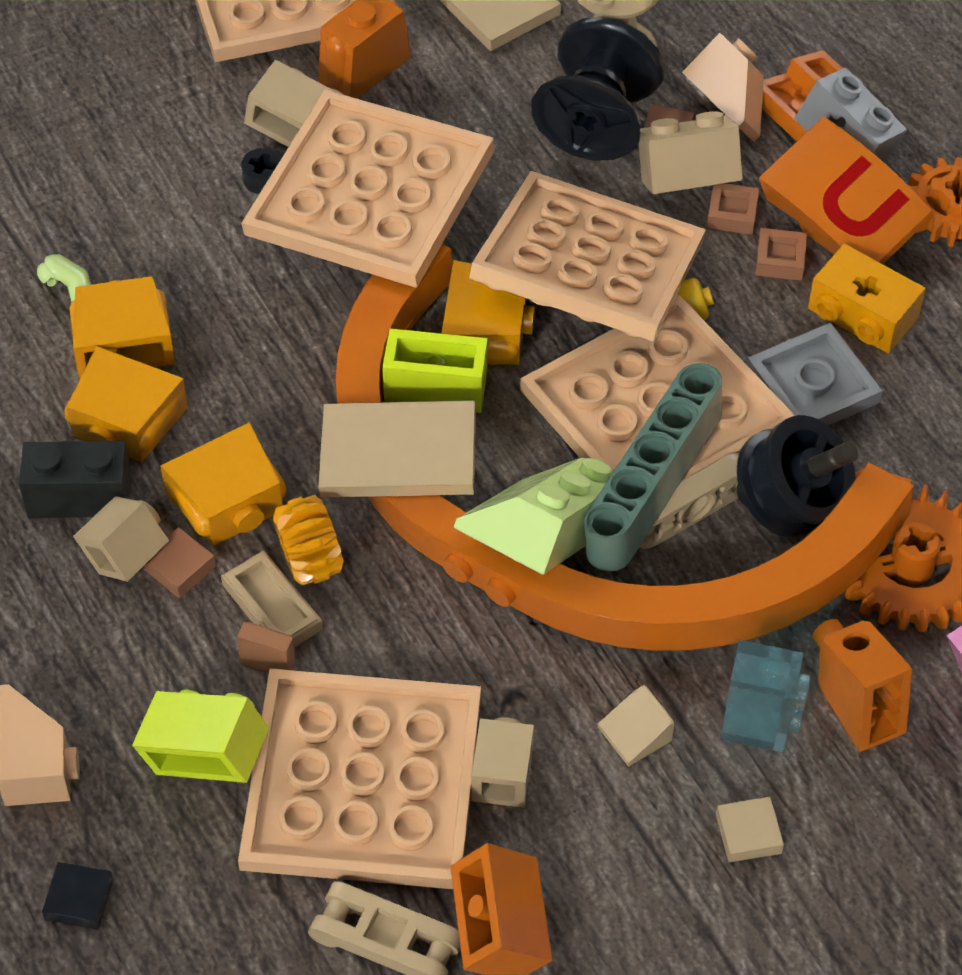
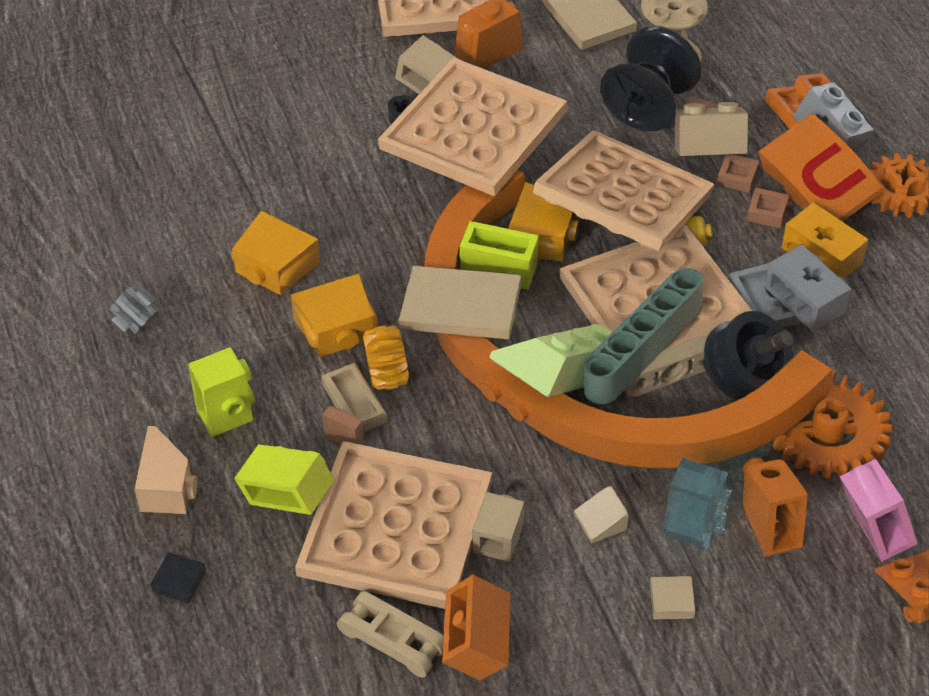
camera: 10 degrees right, 5 degrees down
(61, 269) = (257, 167): yellowish green arm -> none
(72, 477) = (230, 298): pearl dark grey brick -> none
(91, 620) = (222, 391): none -> neon yellow brick
(122, 538) = (256, 339): tan brick -> none
(124, 319) = (284, 195): light orange torso -> none
(180, 563) = (293, 364): nougat tile -> none
(730, 82) = (750, 86): light nougat slope -> none
(858, 368) = (807, 287): none -> light grey brick

